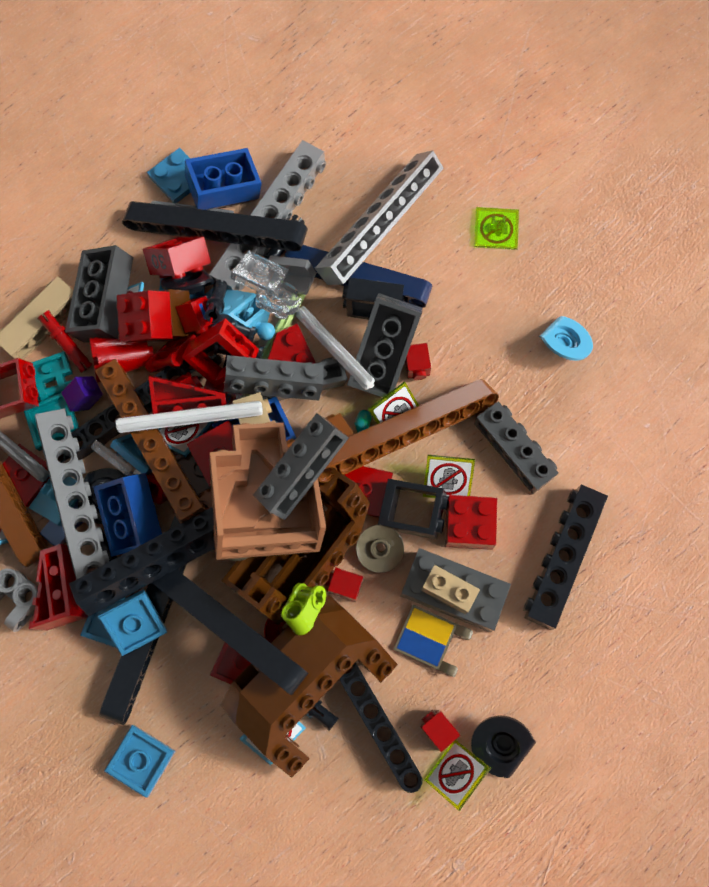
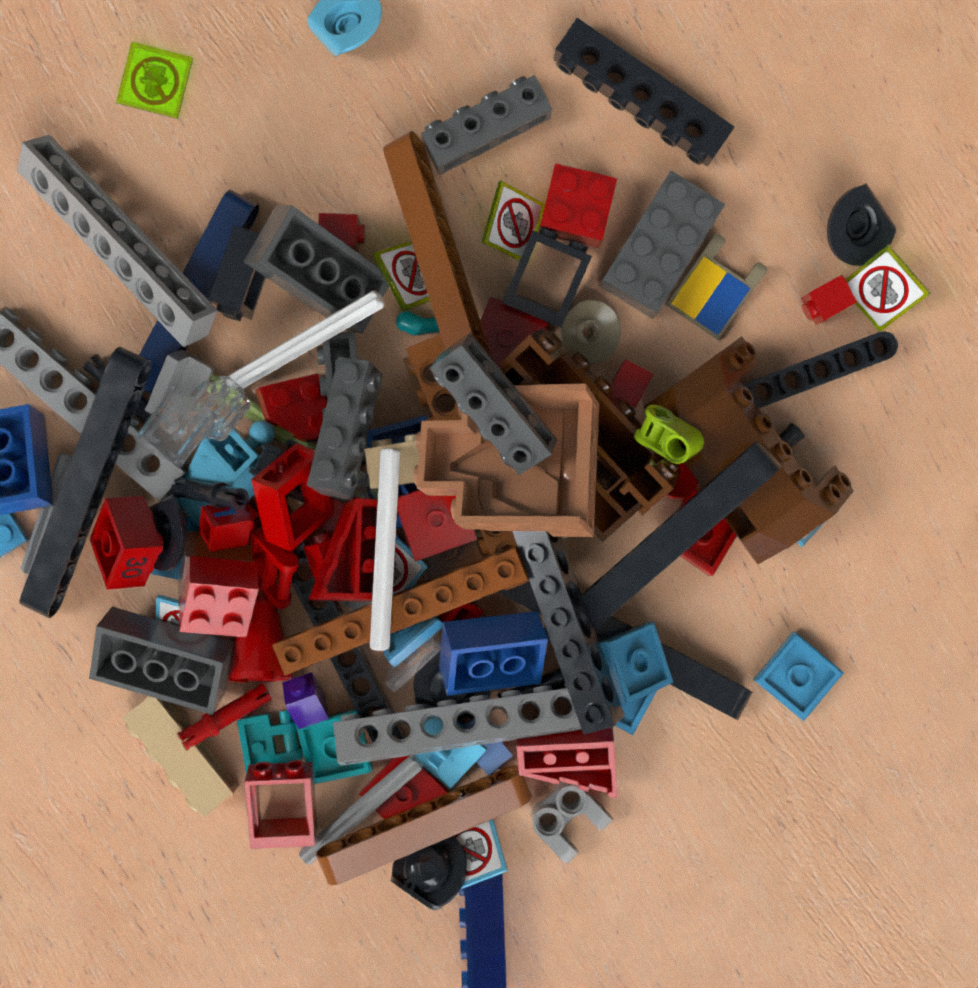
camera: 85 degrees left, 15 degrees up
(450, 590) = (670, 247): tan brick -> none

